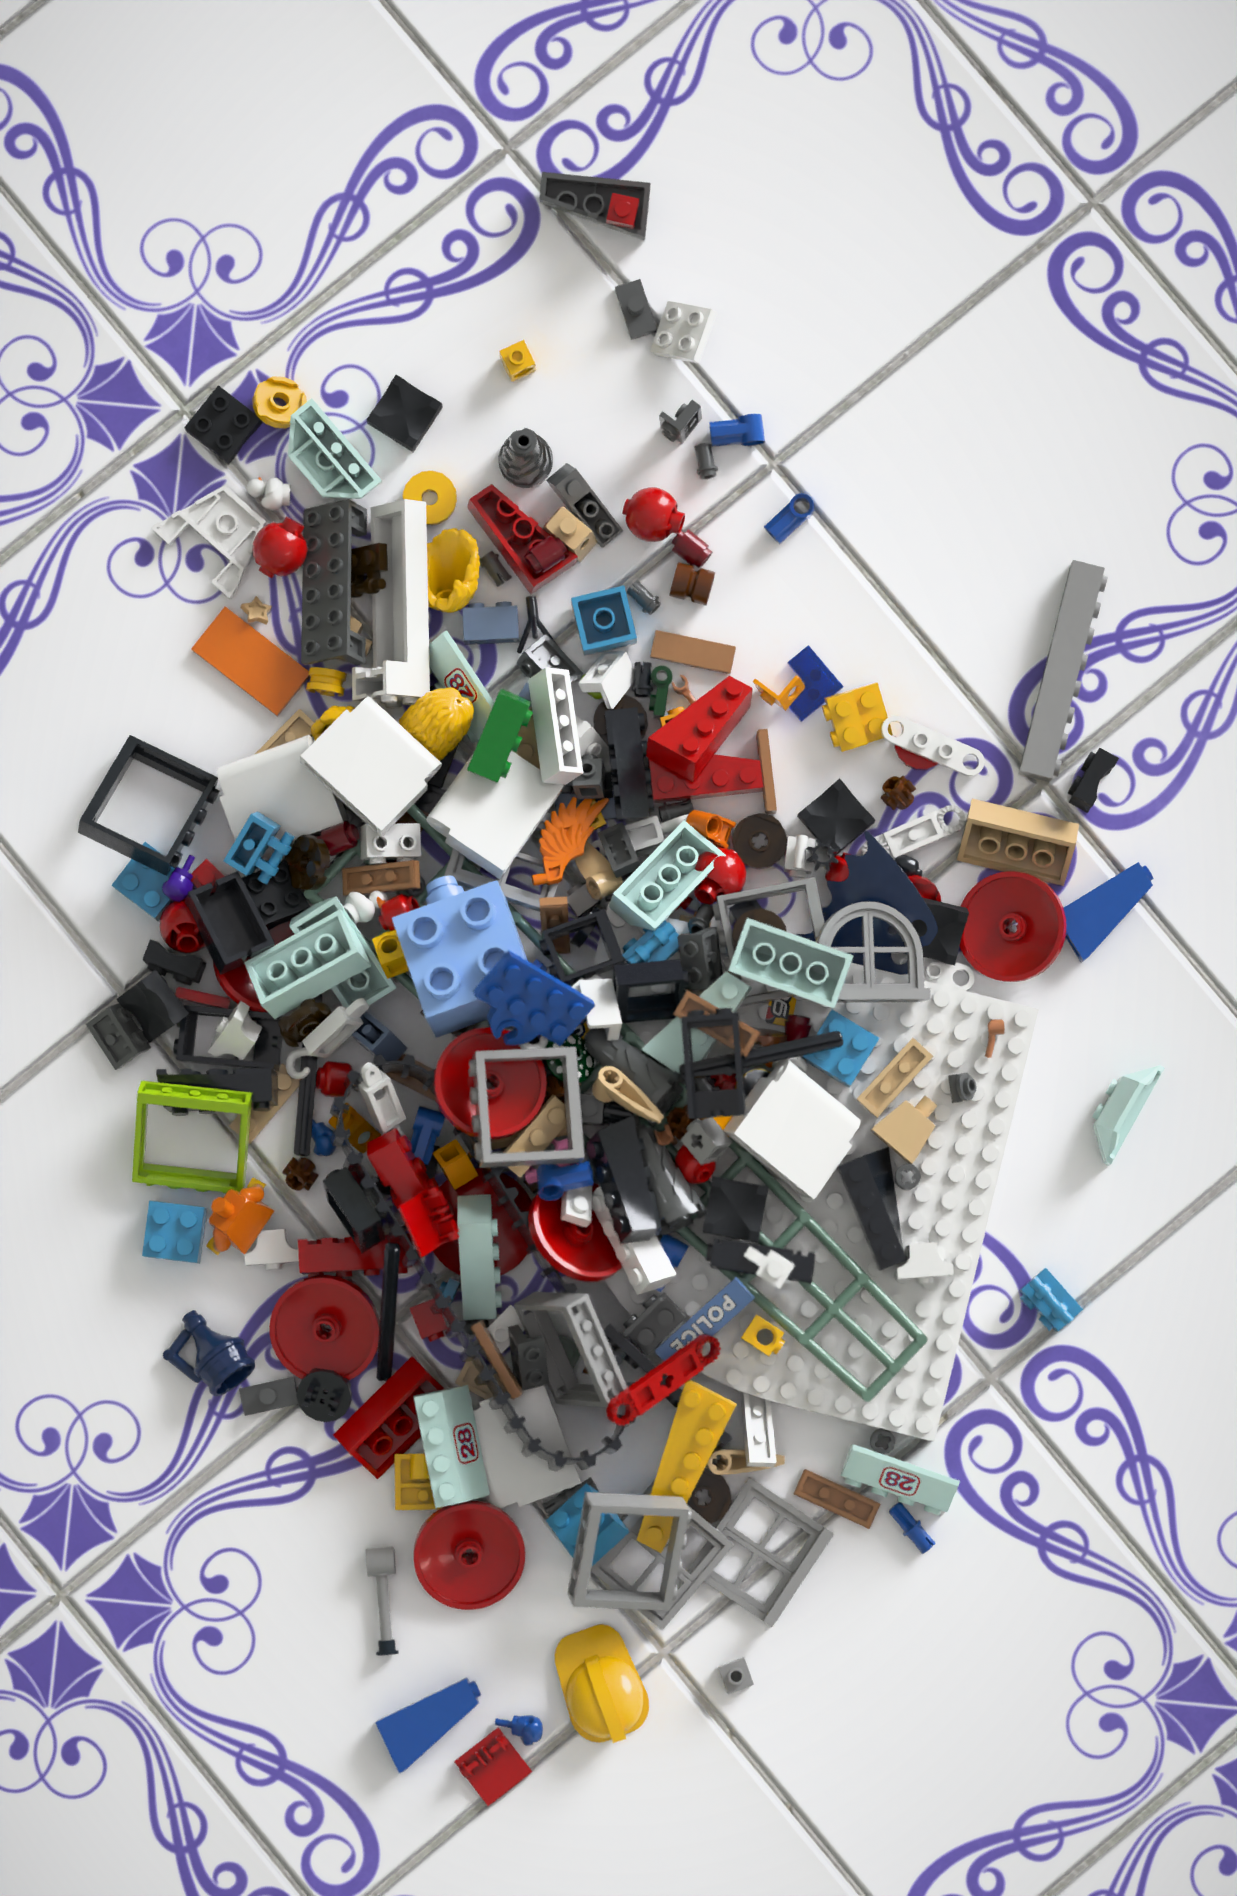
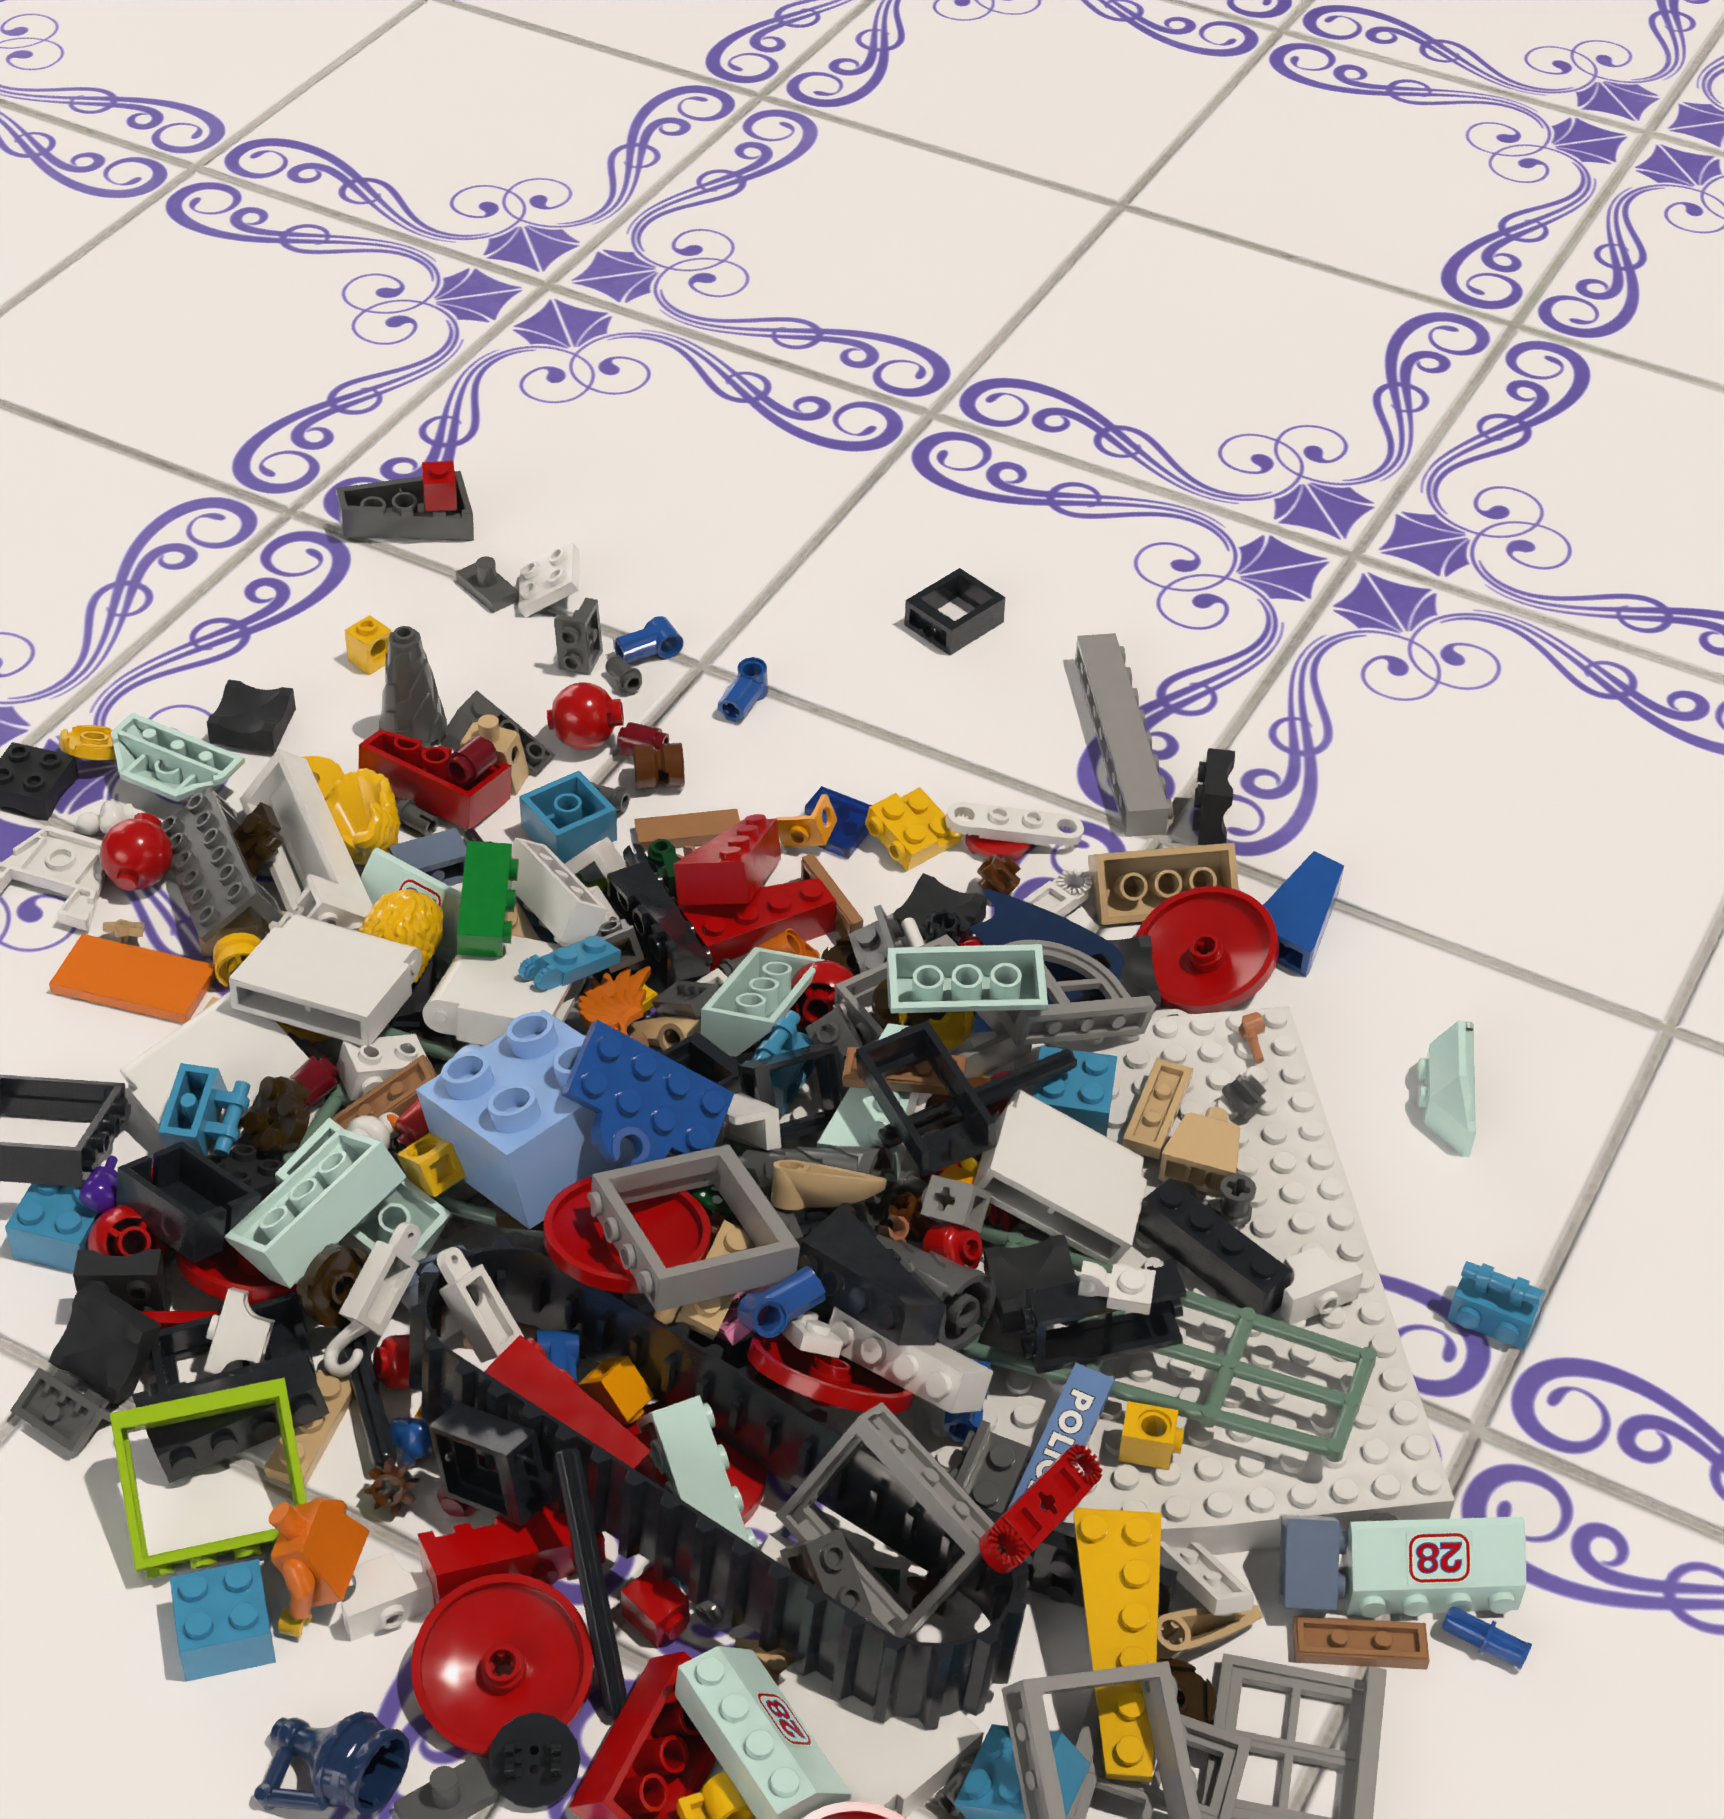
camera: 25 degrees left, 40 degrees down
(426, 1220) = (599, 1406): red hinge -> none
(544, 806) = (570, 963): none -> dark azure hinge
(774, 848) = (873, 940): none -> dark grey bracket
(825, 1447) = (1311, 1562): none -> sand blue brick
(970, 493) = (952, 635): none -> black window

